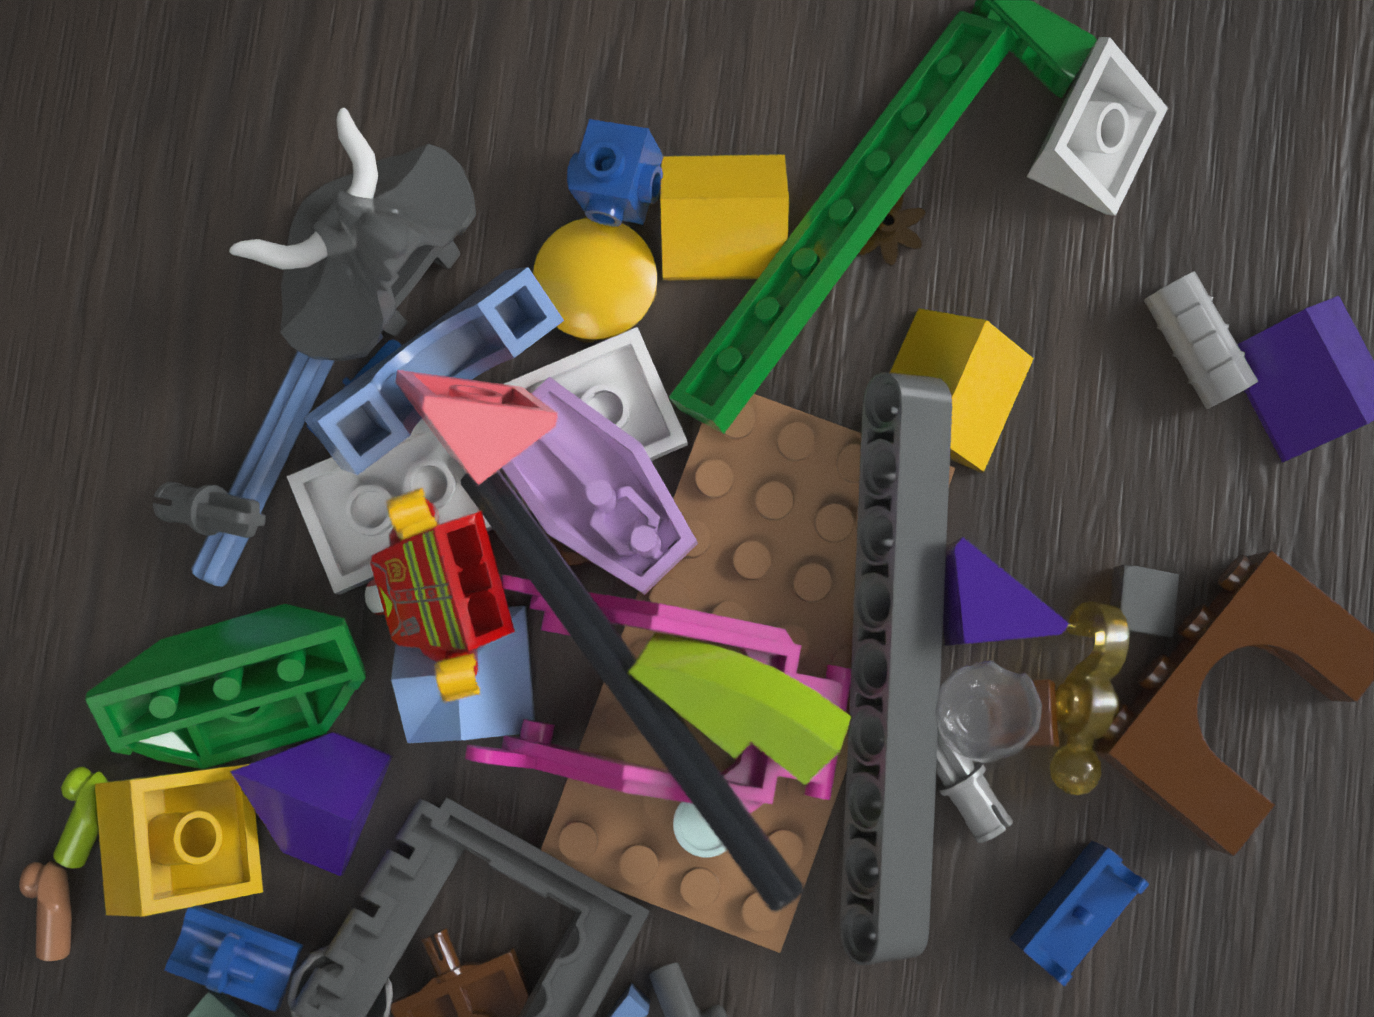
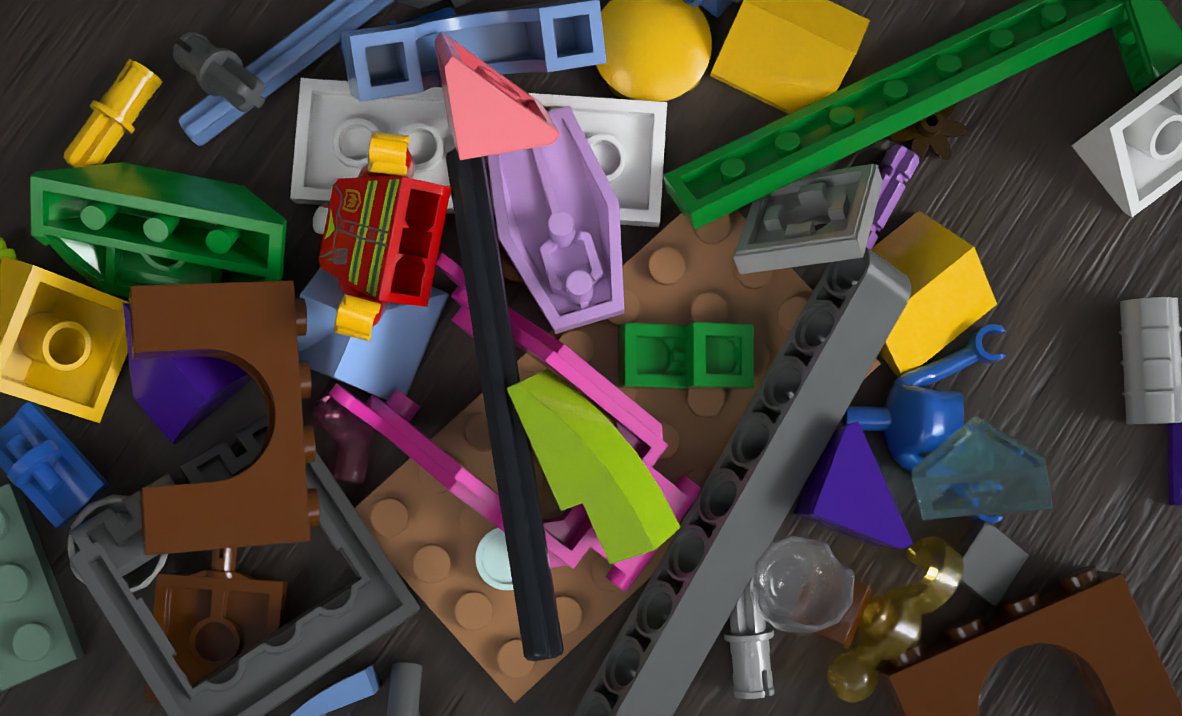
camera: 15 degrees right, 0 degrees up
(128, 600) = (112, 115): none -> yellow axle
(459, 881) = (258, 332): none -> reddish brown arch
(504, 784) = (351, 435): none -> clear pink arm
(774, 554) = (686, 356): none -> green slope
(802, 393) = (782, 227): none -> light grey piece
(877, 317) = (895, 169): none -> medium lavender axle
(1027, 497) = (921, 418): none -> blue piece
(1098, 525) = (981, 474): none -> clear light blue slope

